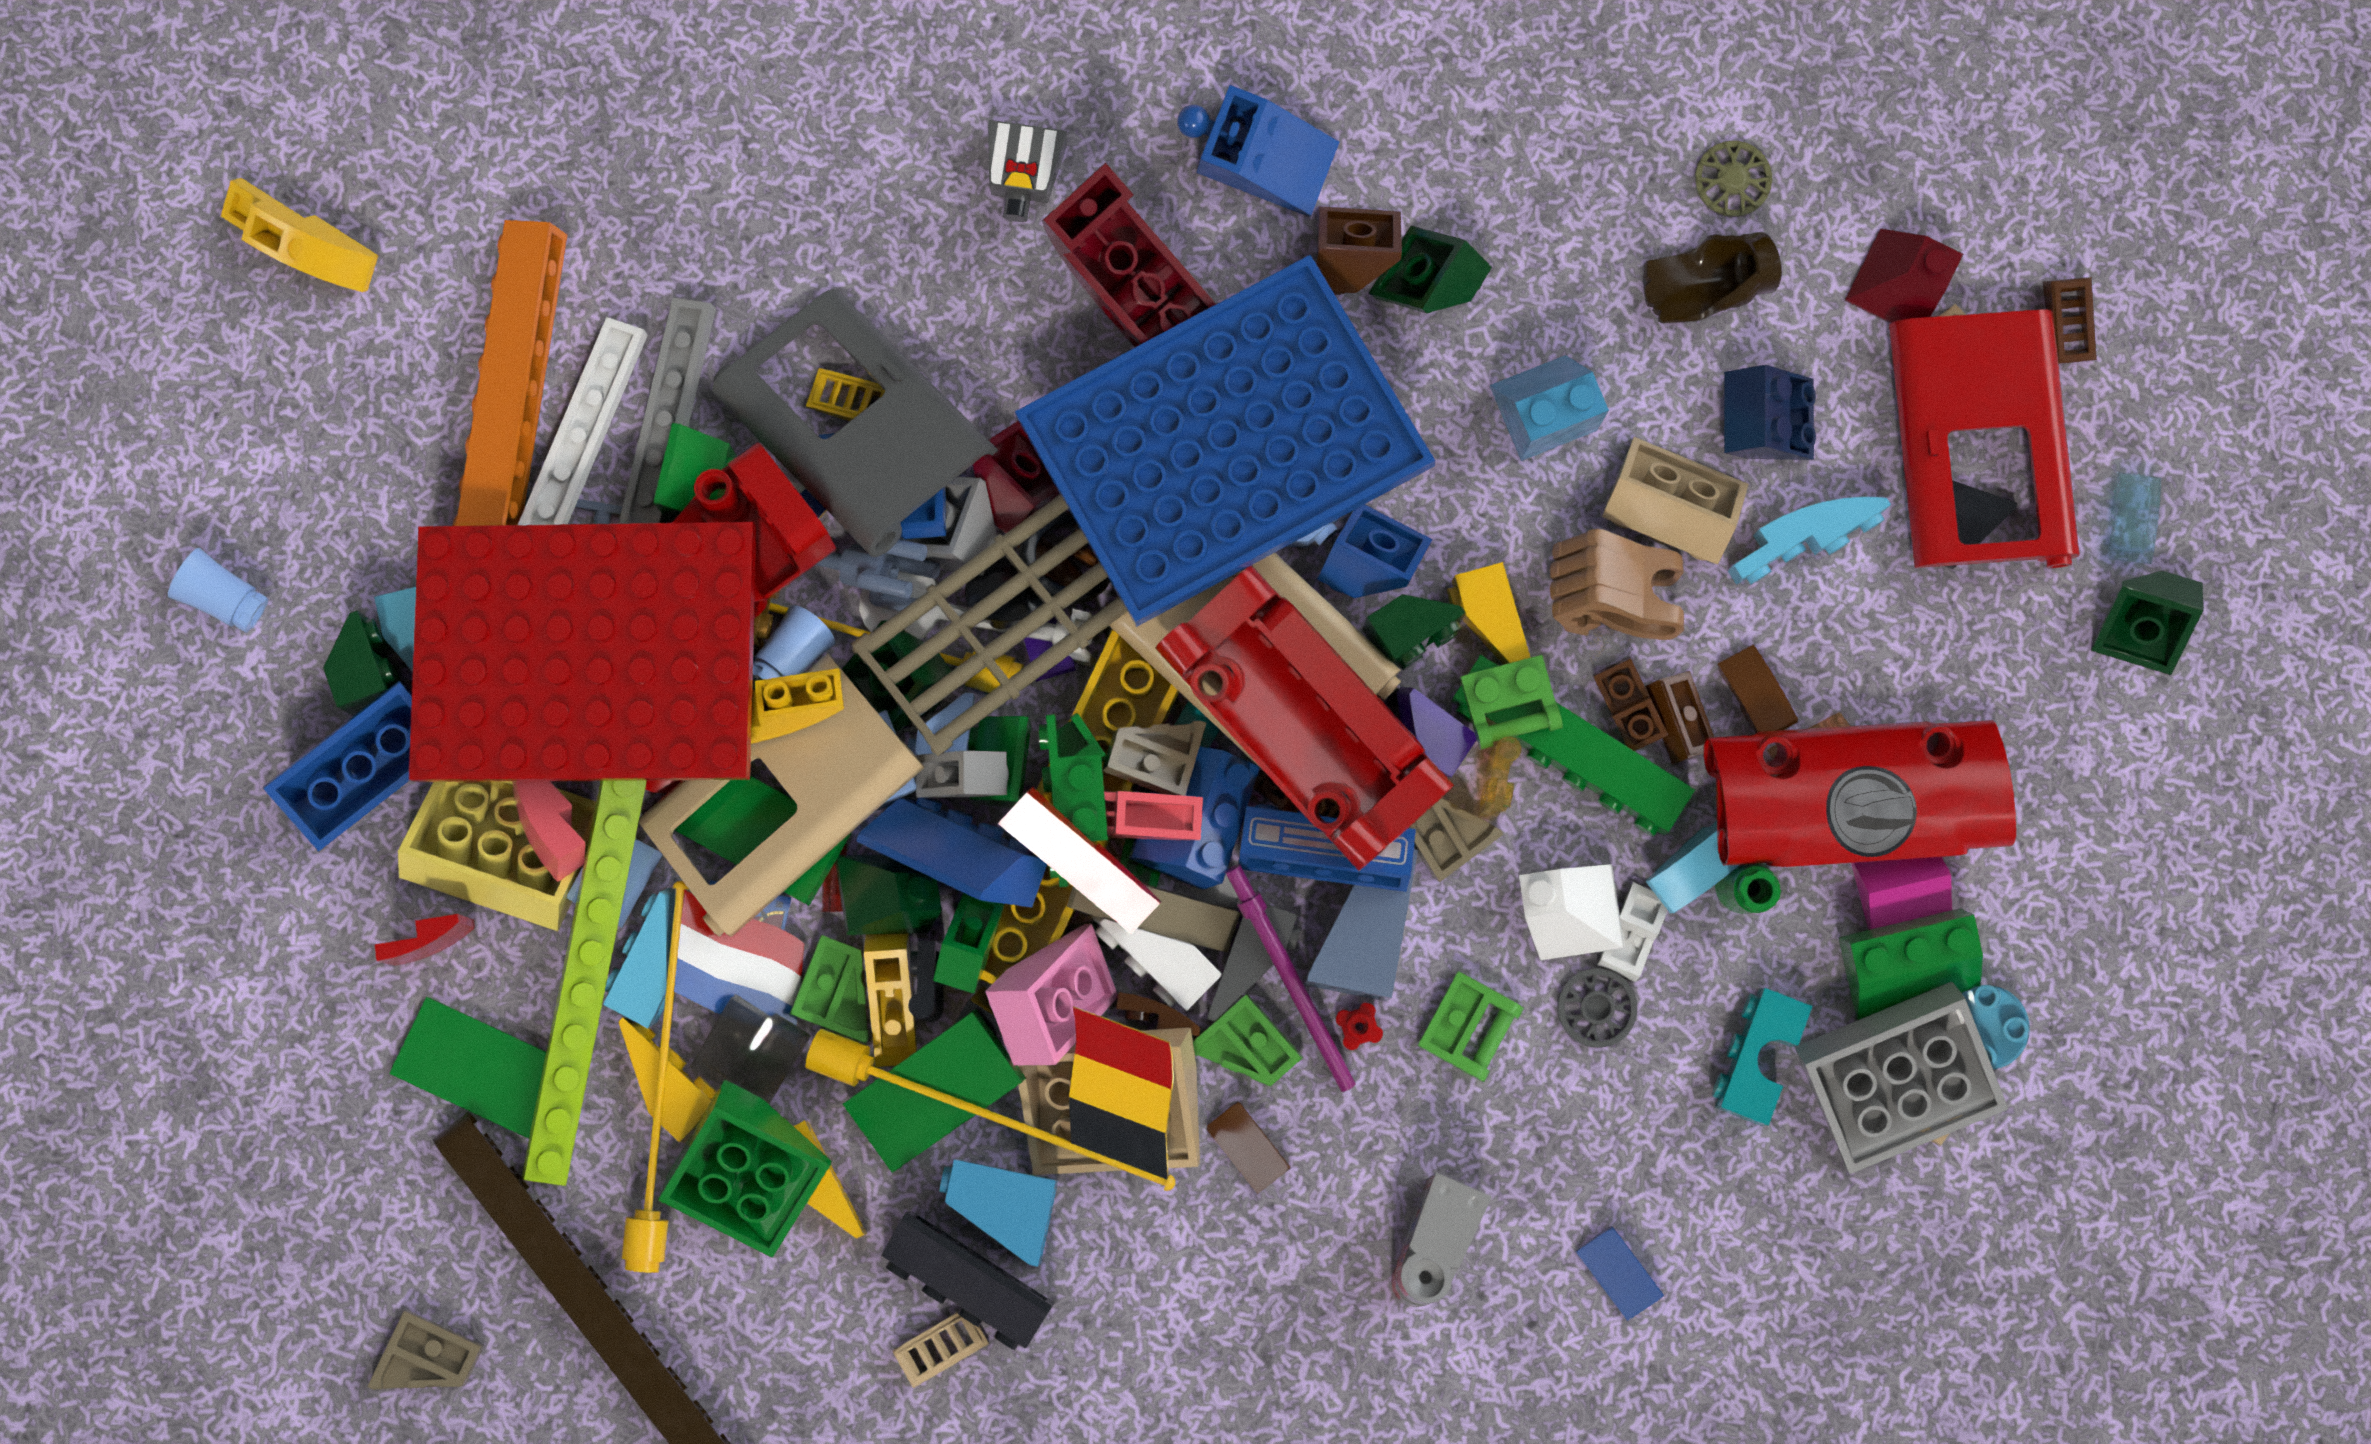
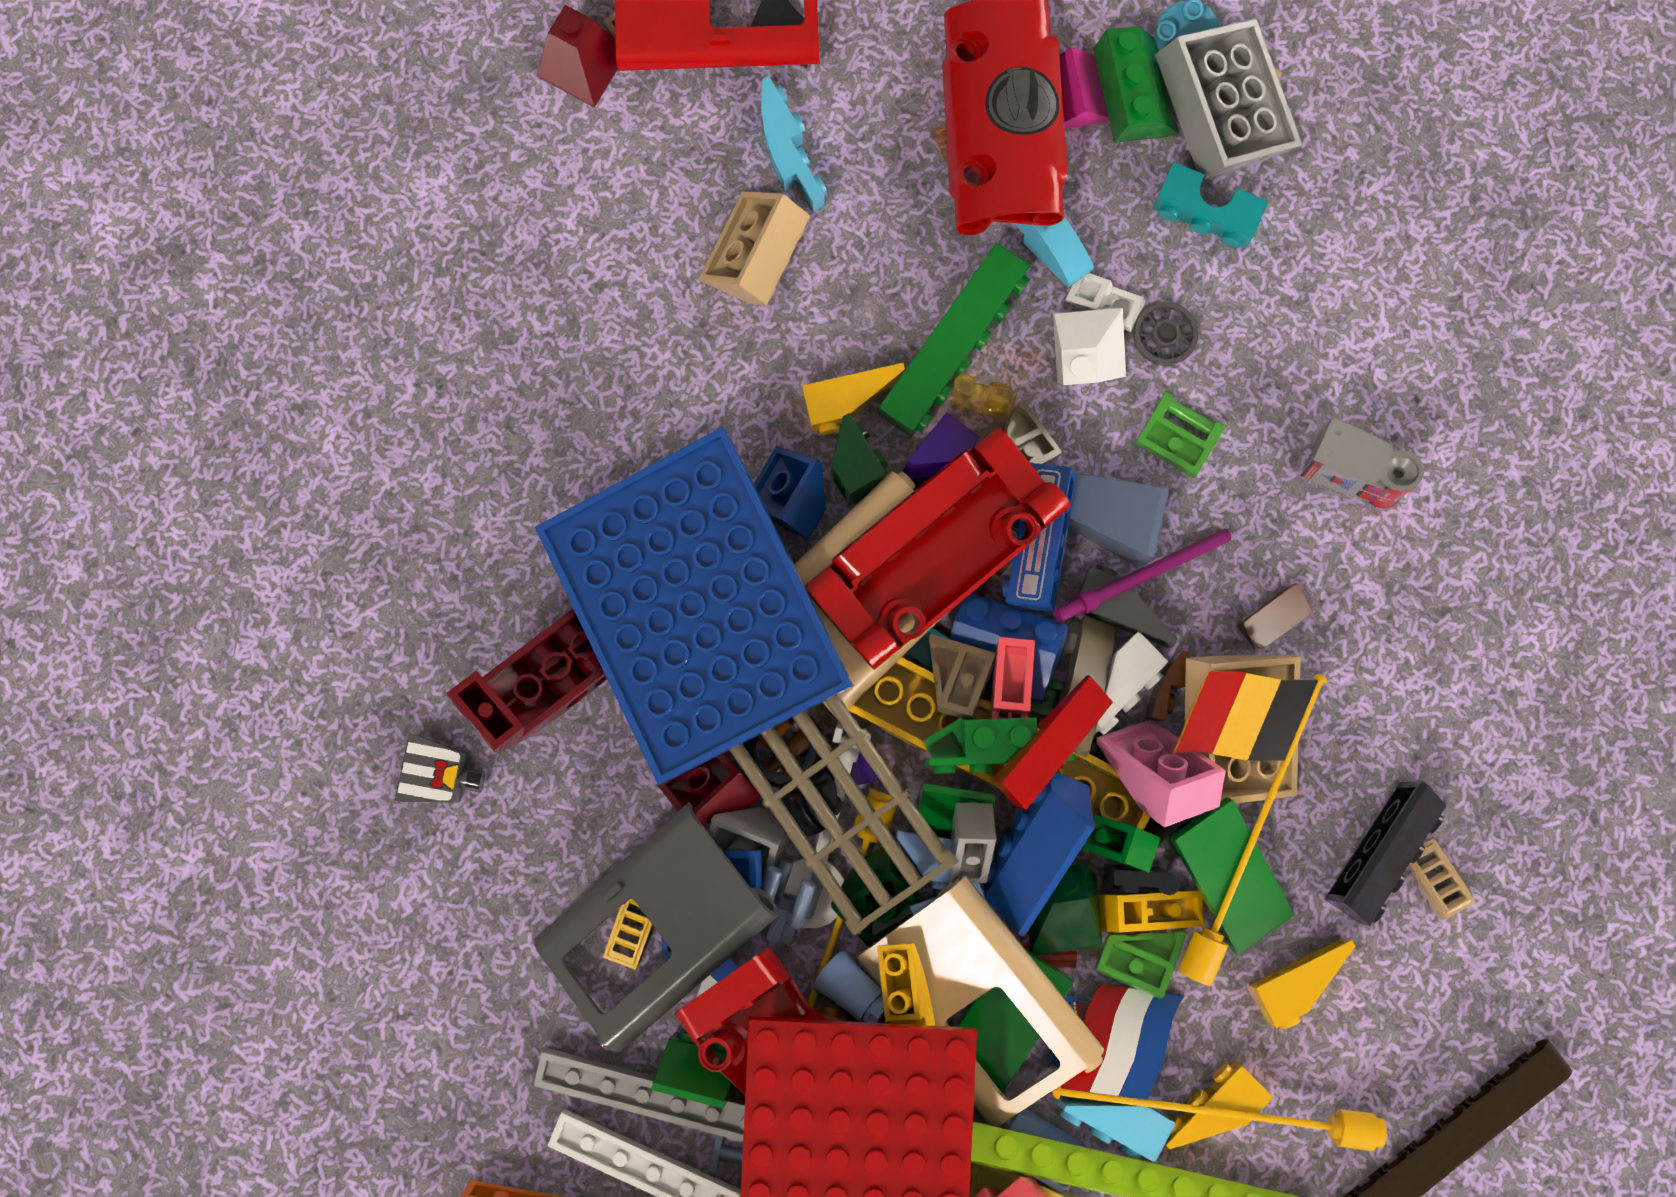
camera: 85 degrees left, 0 degrees up
(745, 1171) = (1299, 1042): green slope -> none
(750, 1049) = (1194, 1033): clear smoke slope -> none
(1003, 1204) = (1328, 820): dark azure slope -> none
(1248, 1043) = (1193, 612): bright green wing -> none
(1270, 157) = (440, 564): blue slope -> none
(1356, 246) = (524, 492): reddish brown slope -> none
(1370, 1030) = (1172, 531): red plate -> none
(1432, 272) = (552, 434): dark green slope -> none
(1505, 689) = (909, 386): bright green plate -> none
(1550, 405) = (669, 340): dark azure slope -> none
(1611, 583) = (824, 299): medium nougat piece -> none
(1619, 1273) = (1378, 327): blue slope -> none
(1630, 704) = (920, 293): reddish brown slope -> none
(1682, 716) = (932, 255): reddish brown slope -> none
(1712, 277) = (570, 206): dark brown hair -> none
(1733, 178) = (486, 187): olive wheel -> none
(1733, 889) = (1081, 200): green plant -> none
(1757, 691) = (914, 192): reddish brown slope -> none
(1769, 414) = (686, 169): dark blue slope -> none

